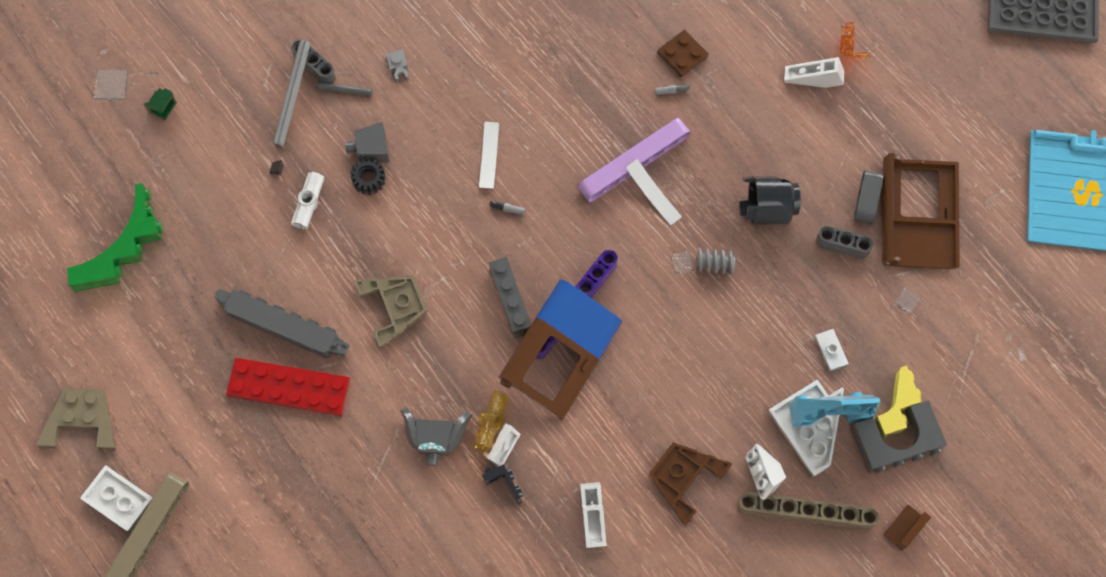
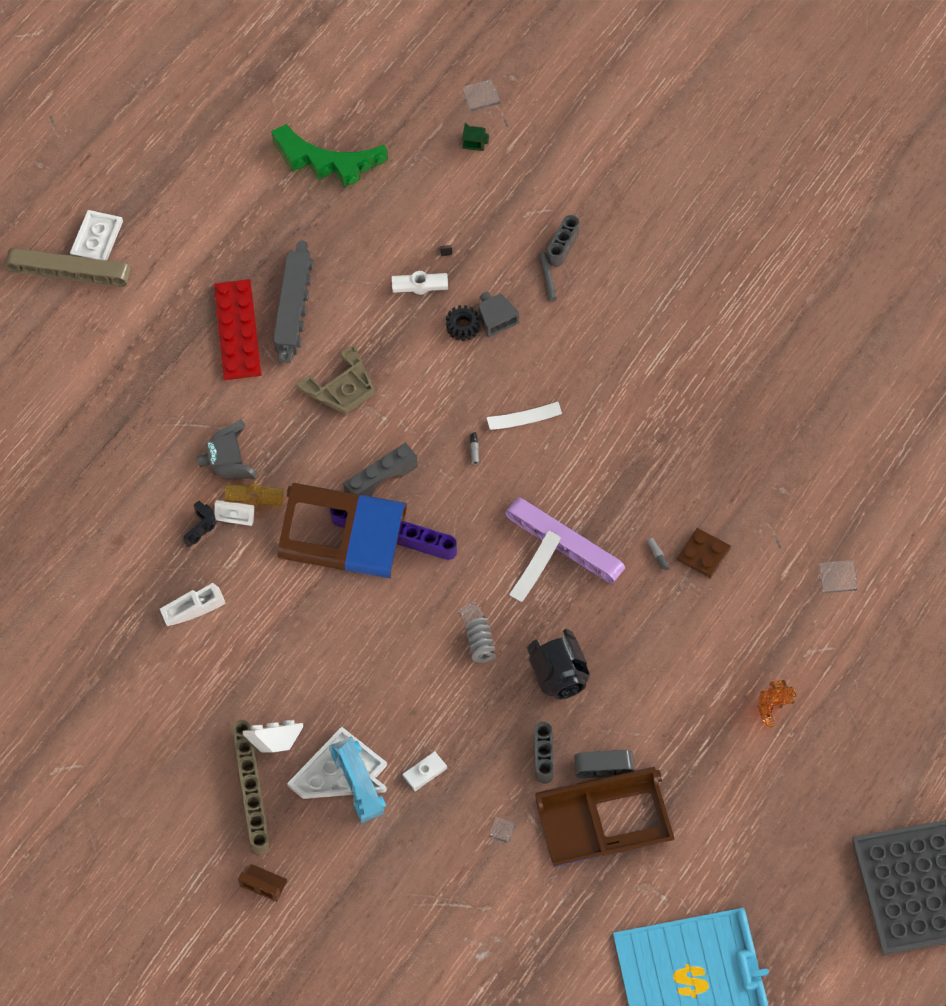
camera: 75 degrees right, 10 degrees down
(79, 410) = (166, 183): dark tan wing -> none
(291, 93) = (521, 232): light grey axle -> none
(397, 64) = (592, 309): light grey plate -> none
(678, 470) = (256, 665): reddish brown wing -> none
(817, 73) = (727, 680): white slope -> none
(879, 455) = (356, 878): dark grey arch -> none
(903, 397) = (393, 846): light yellow arch -> none

